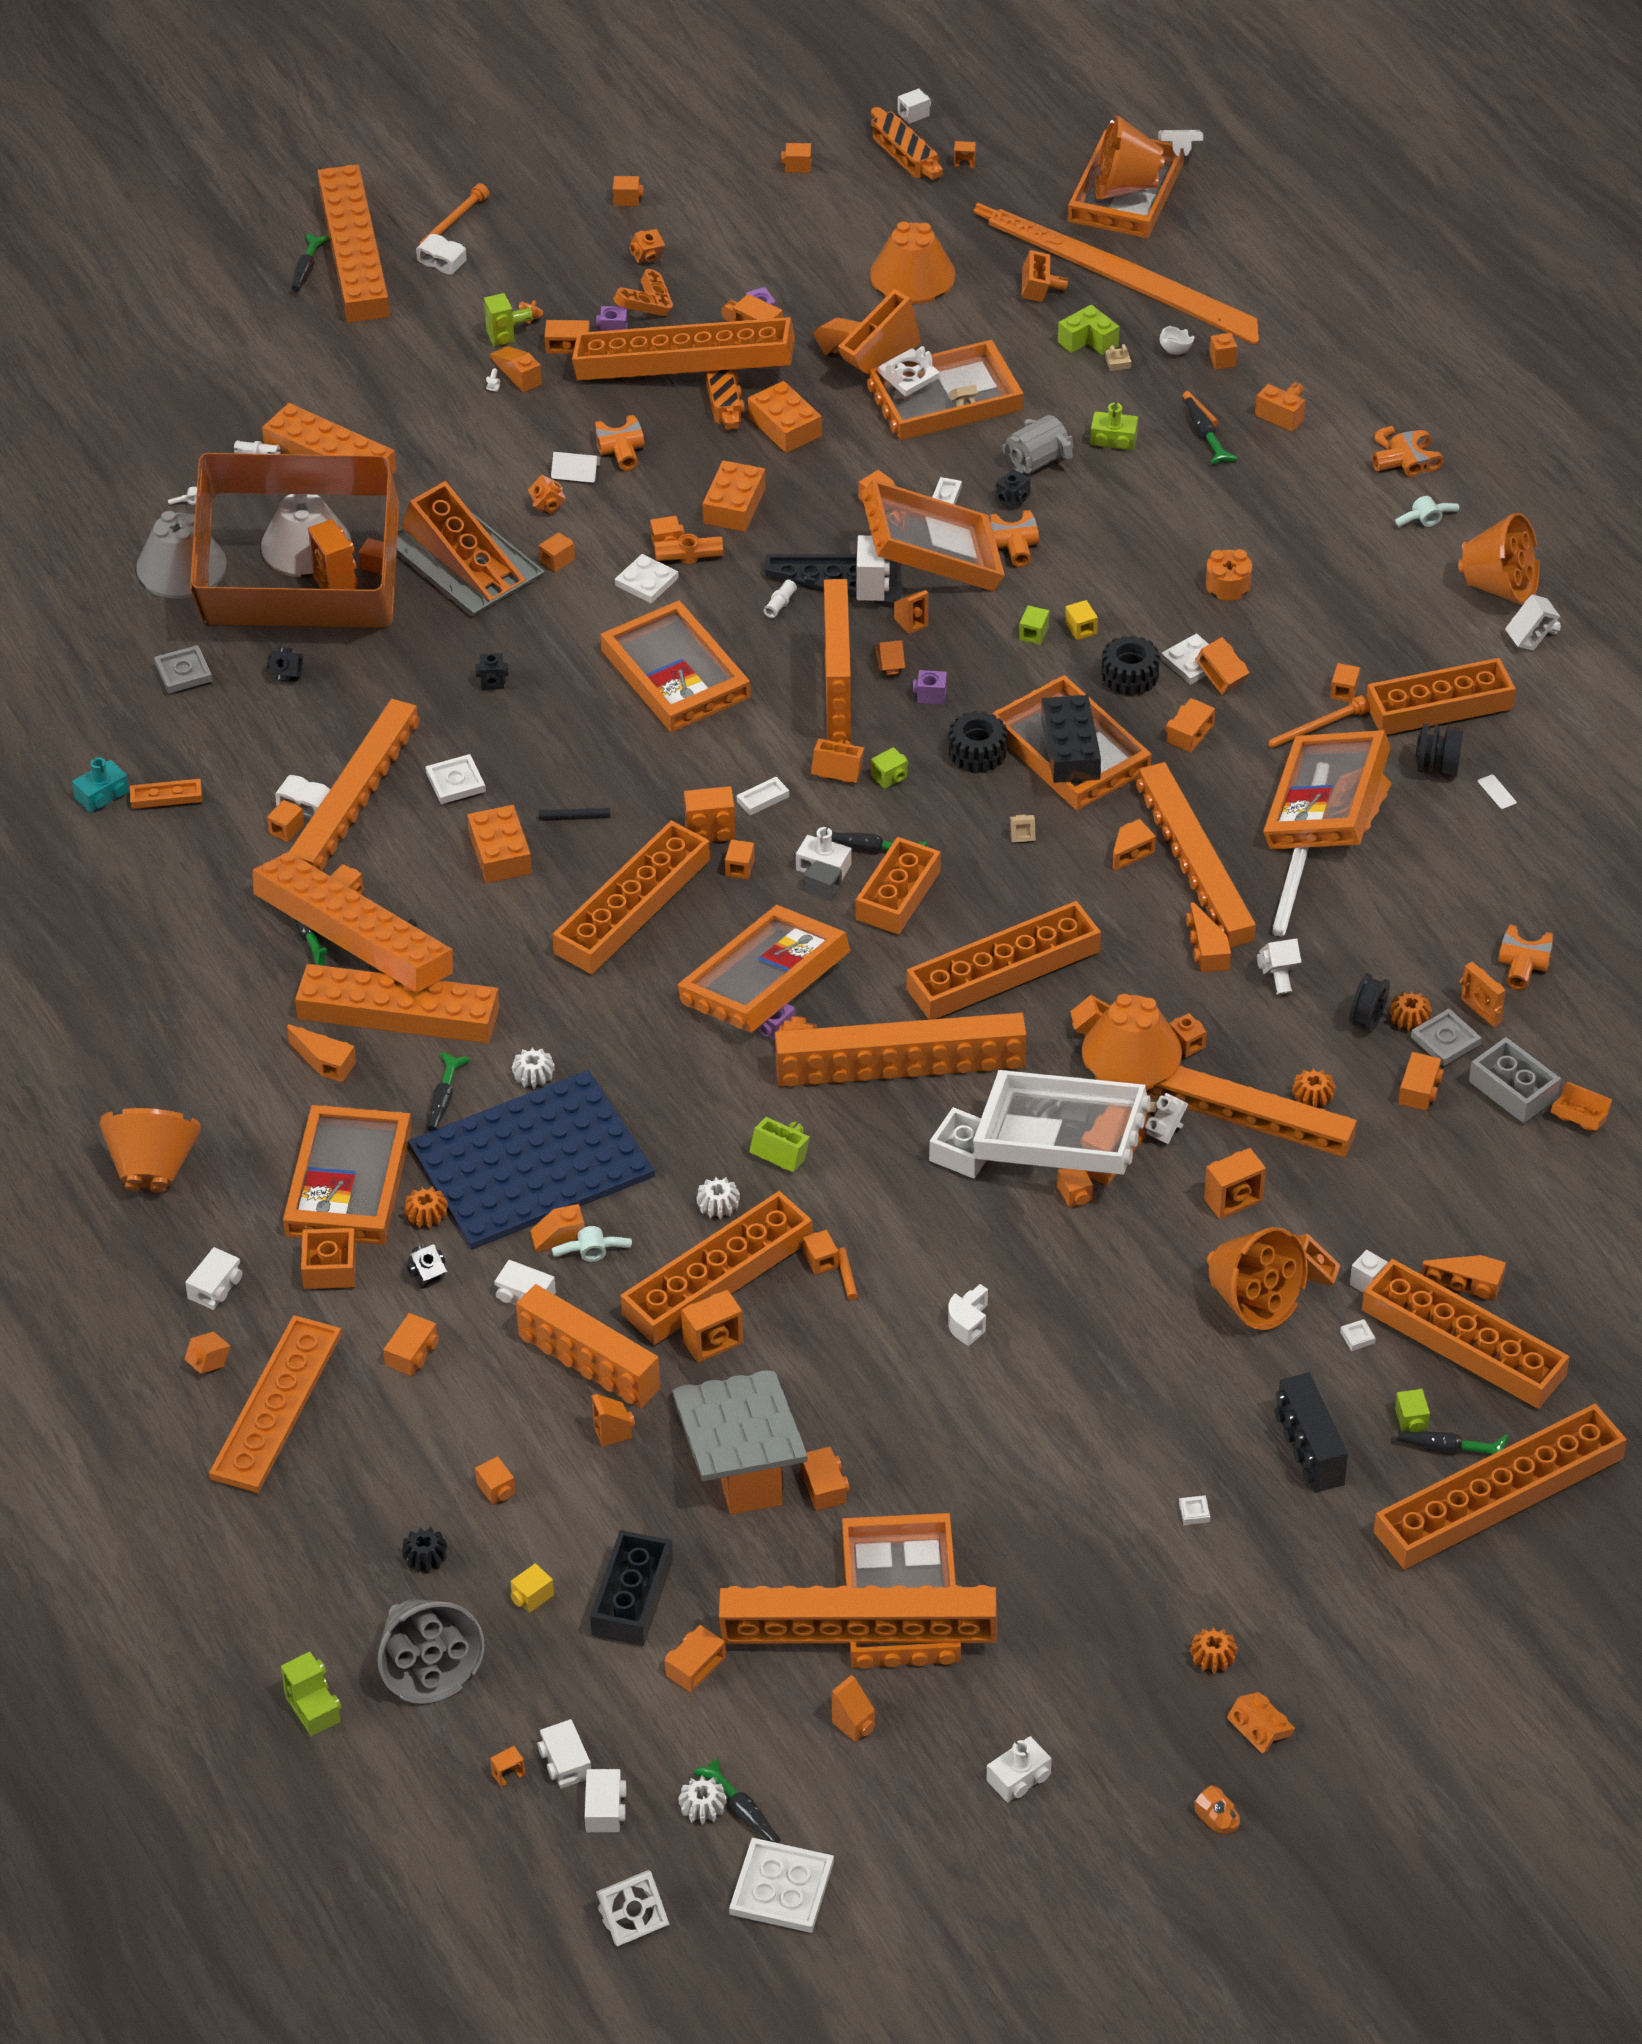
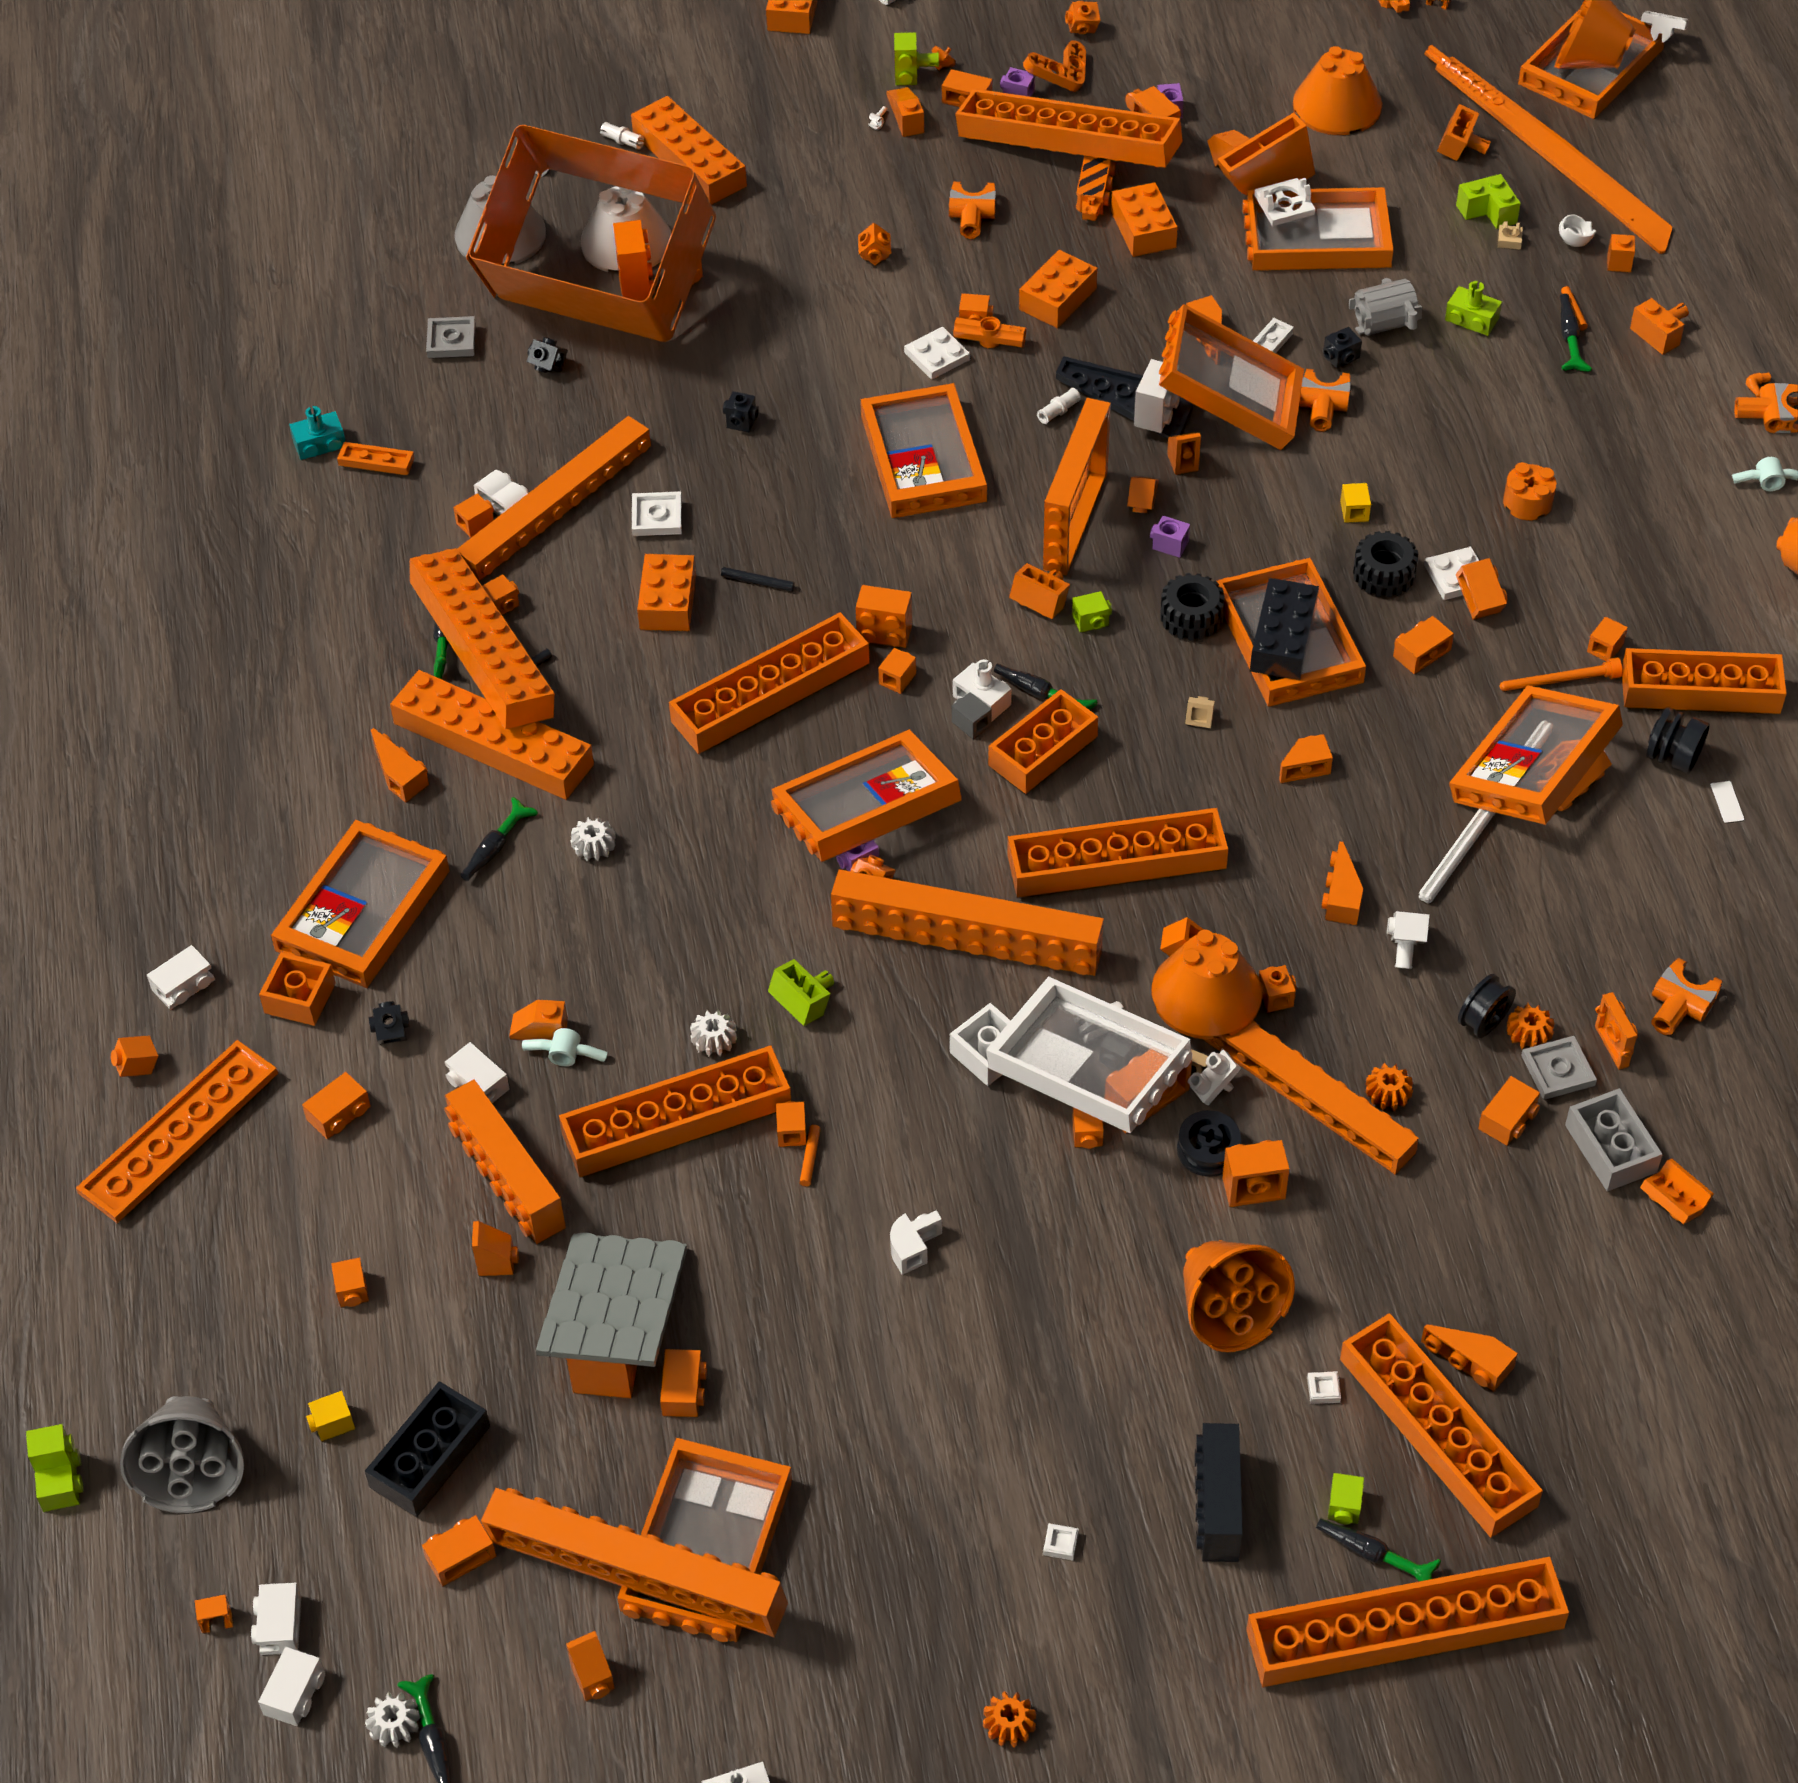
camera: 20 degrees right, 5 degrees up
(148, 1145) = (175, 822): orange cone -> none
(424, 1549) = (245, 1338): black gear -> none
(426, 1207) = (419, 960): orange gear -> none
(461, 552) = (766, 282): orange piece -> none
(530, 1157) = (549, 936): dark blue plate -> none
(557, 552) = (859, 305): orange brick -> none
(574, 467) = (916, 222): white panel -> none
(712, 1326) = (639, 1176): orange brick -> none
(762, 796) = (952, 608): white tile -> none
(963, 393) = (1331, 236): tan tile -> none
(1034, 625) = (1304, 496): lime brick -> none
(1183, 1161) = (1211, 1128): none -> black wheel
(1195, 854) = (1370, 790): orange brick -> none
(1321, 1265) = (1310, 1289): orange slope -> none
(1365, 1270) = (1360, 1315): white brick -> none

